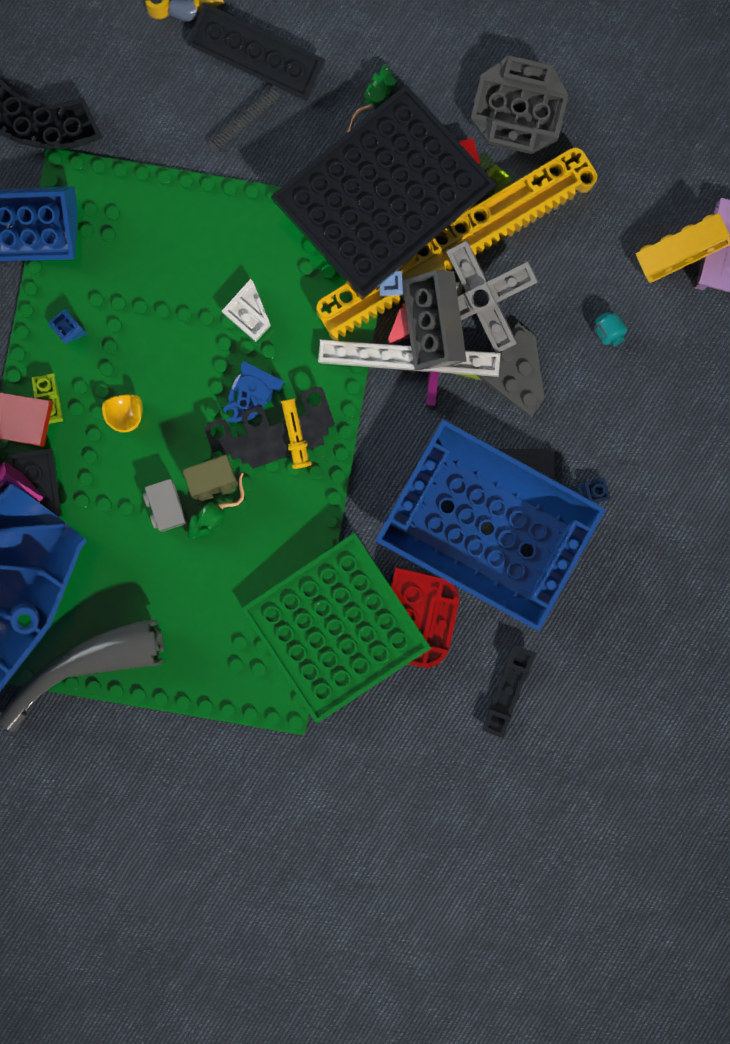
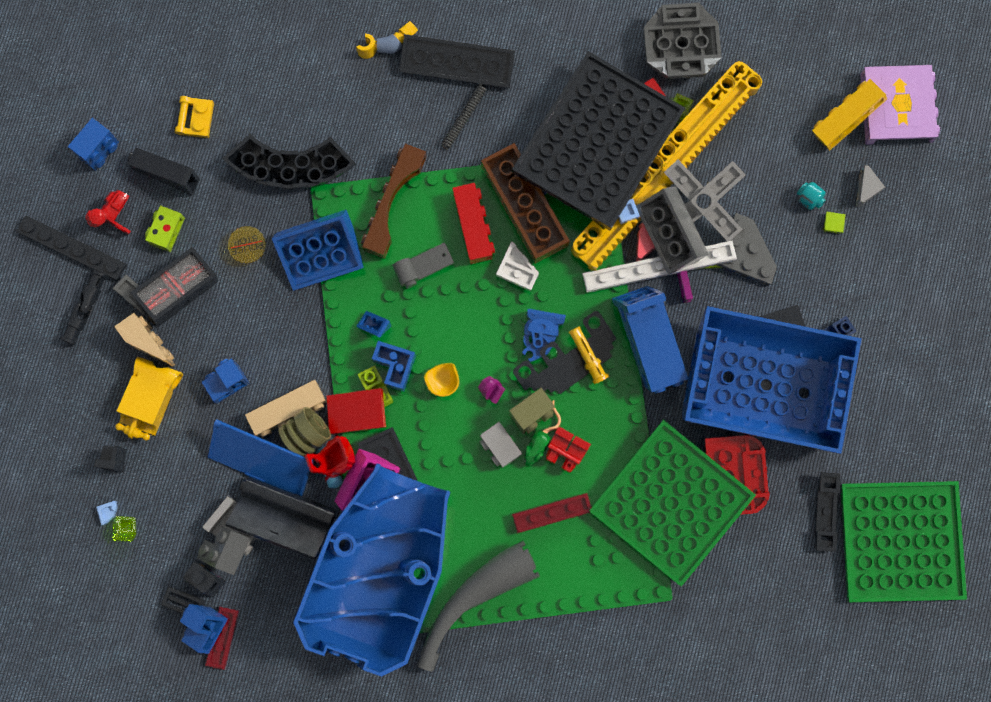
camera: 20 degrees left, 5 degrees down
(80, 381) = (399, 362): none -> blue brick
(142, 276) = (414, 269): none -> dark grey door
(161, 157) = (408, 166): none -> reddish brown arch
(175, 439) = (491, 389): none -> magenta piece
(200, 598) = (552, 513): none -> dark red tile
(213, 245) = (472, 223): none -> red brick
(231, 526) = (558, 448): none -> red hips
(277, 243) = (525, 205): none -> reddish brown brick
(370, 437) = (651, 338): none -> blue brick
(377, 92) = (564, 66): green animal -> none
(583, 750) = (903, 541): none -> green plate
(627, 367) = (834, 222): none -> lime tile
(680, 338) = (868, 186): none -> light grey slope

